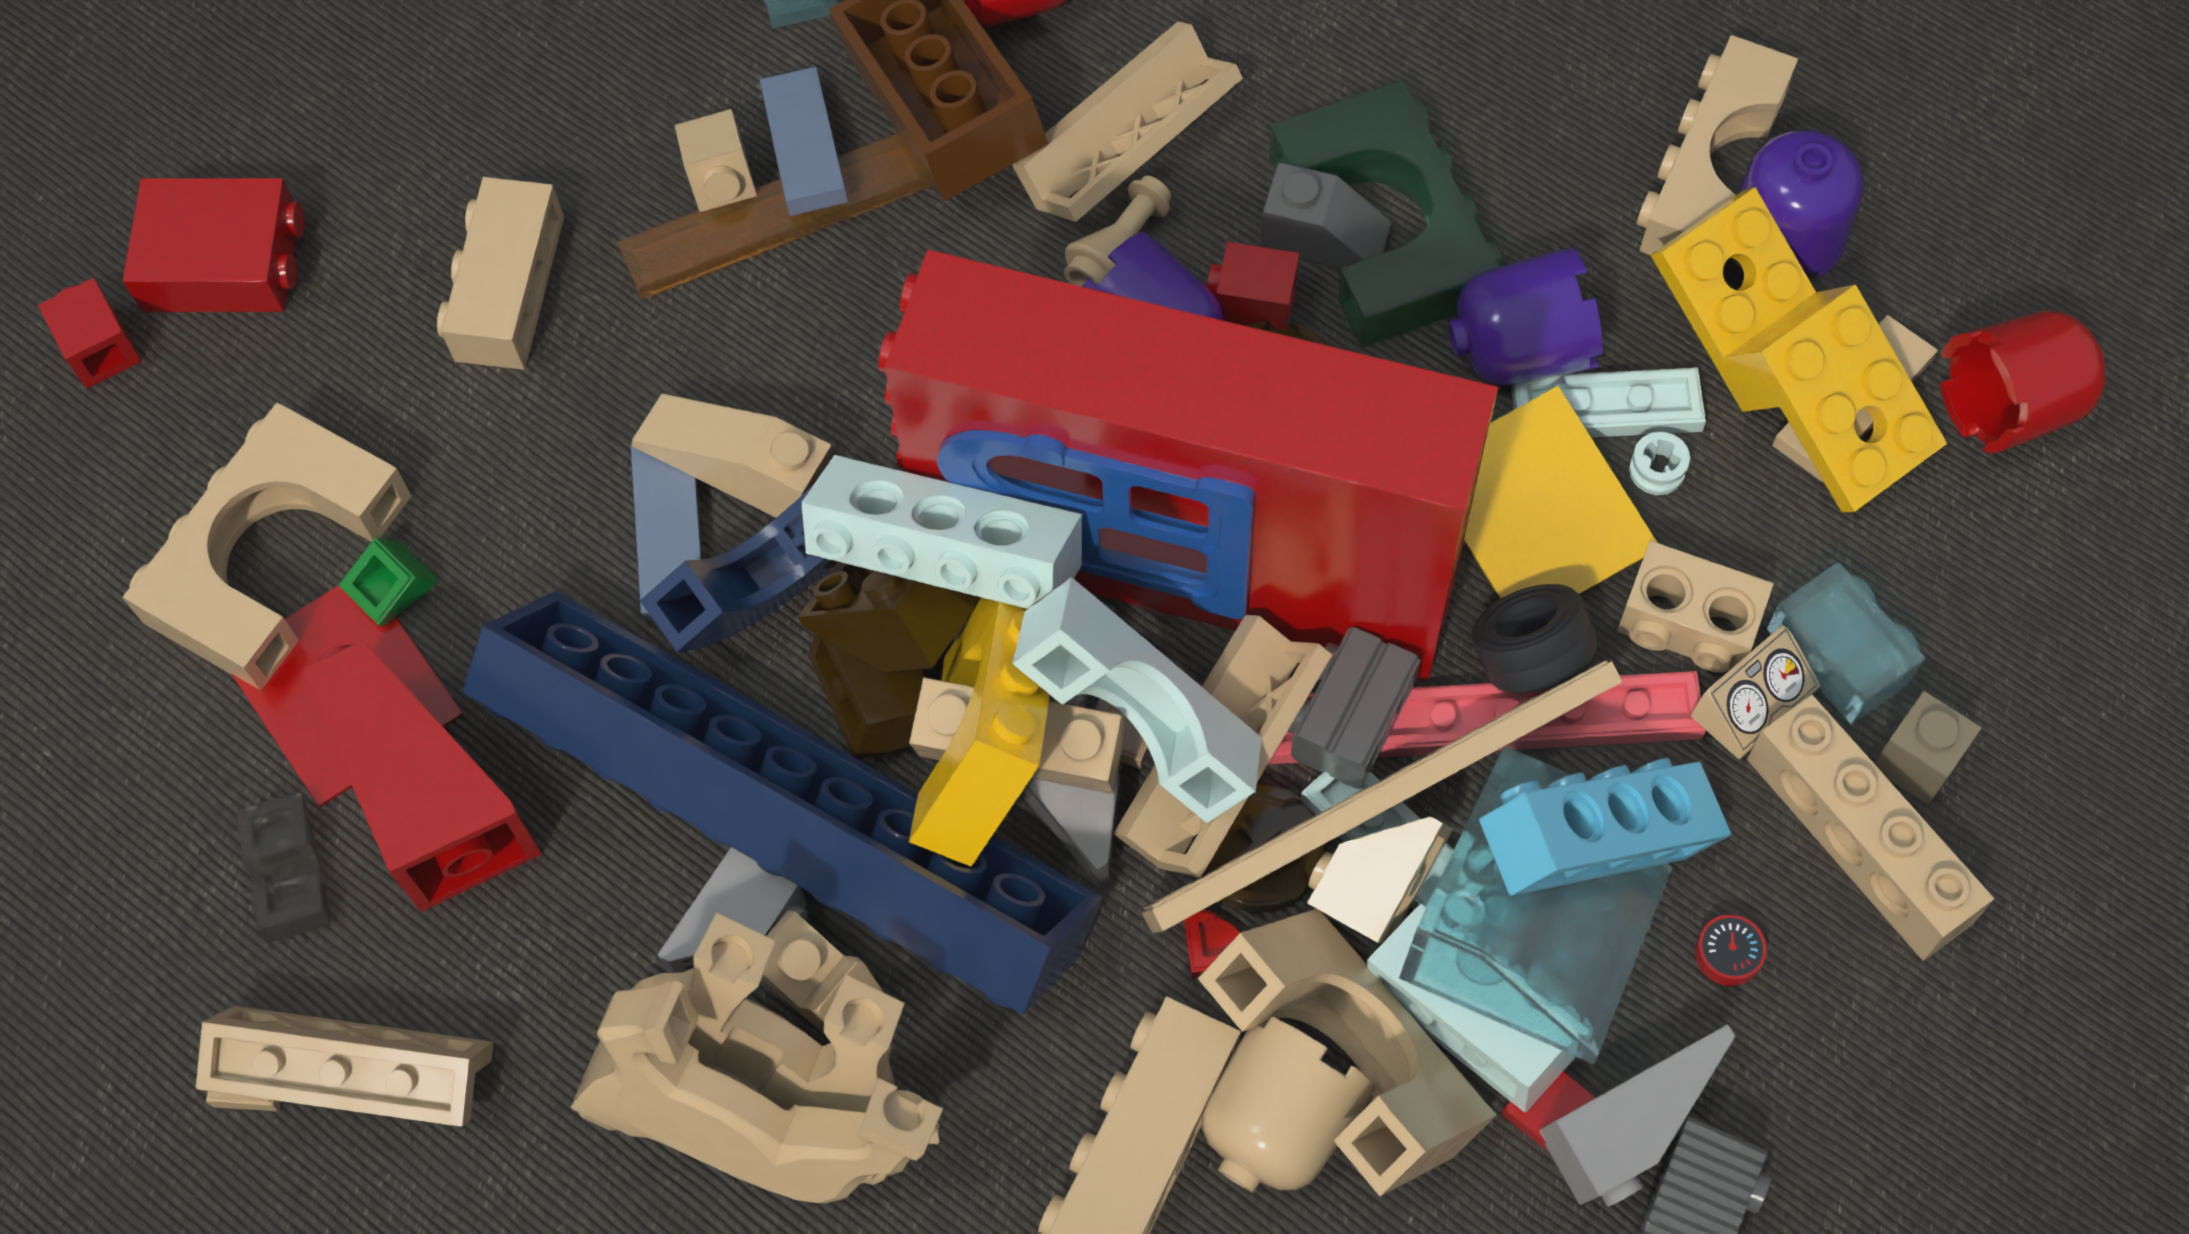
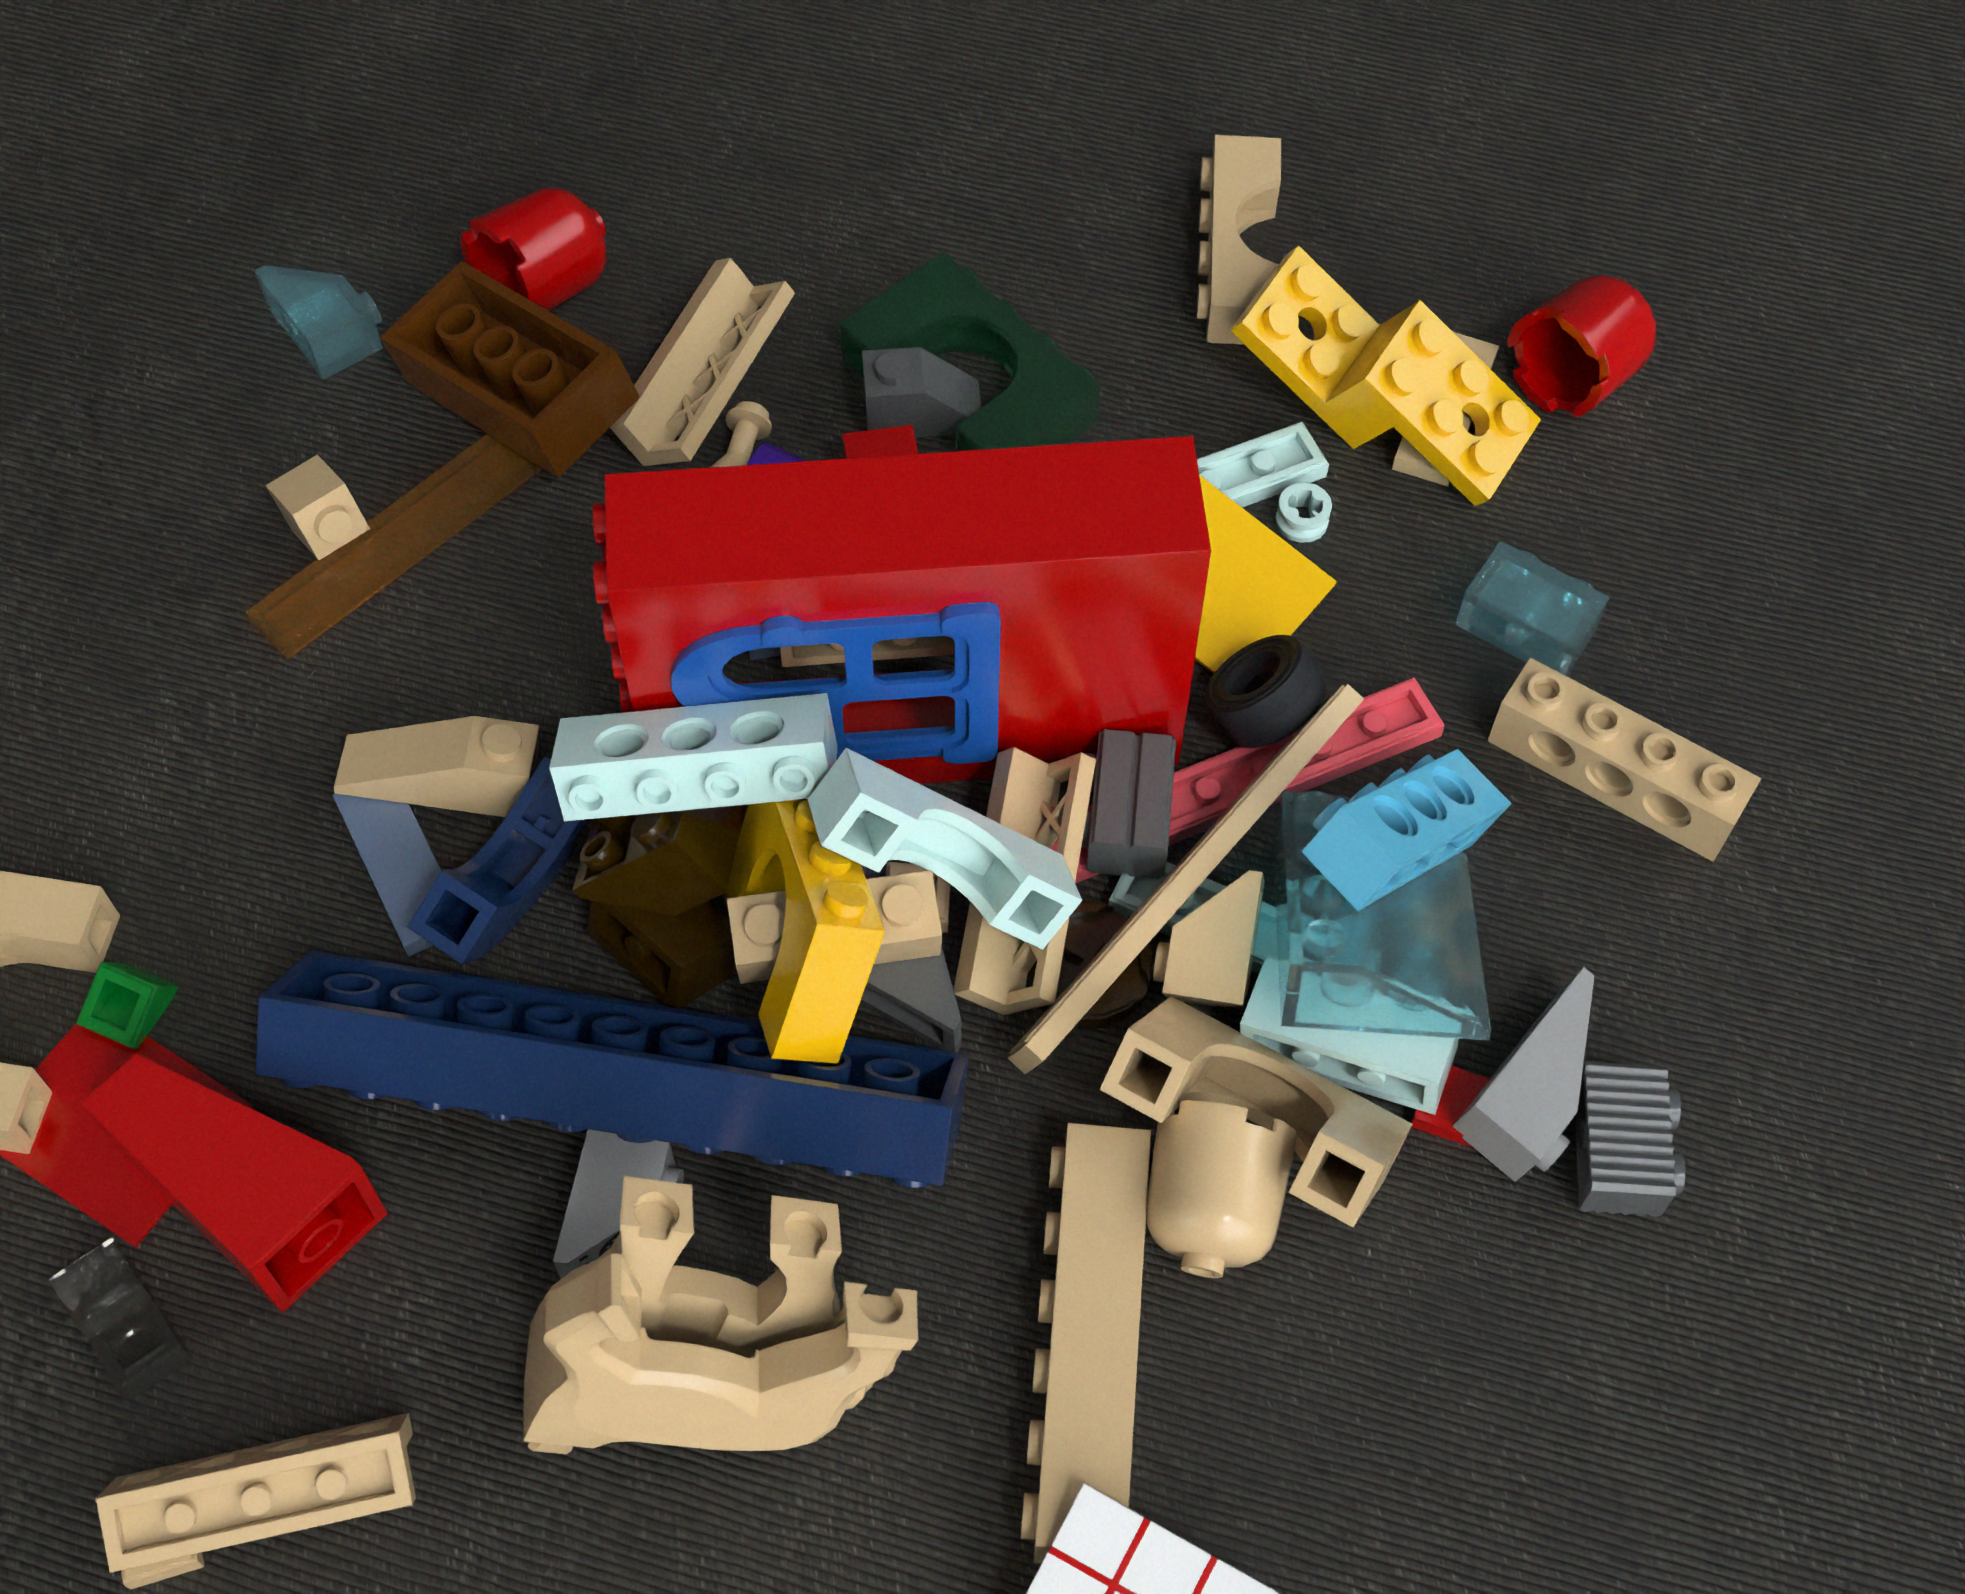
camera: 25 degrees left, 5 degrees down
(501, 273) = (137, 675): tan brick -> none
(803, 141) = (397, 467): sand blue tile -> none
(809, 968) = (729, 1230): tan slope -> none
(1206, 939) = (1081, 1067): red tile -> none
(1527, 321) = (1148, 401): dark purple cylinder -> none
(1699, 593) = (1389, 611): tan brick -> none
(1730, 950) = (1548, 908): black tile -> none
(1756, 692) = (1476, 678): slope -> none
(1811, 192) = (1344, 236): dark purple cylinder -> none
(1926, 747) = (1643, 671): dark tan brick -> none

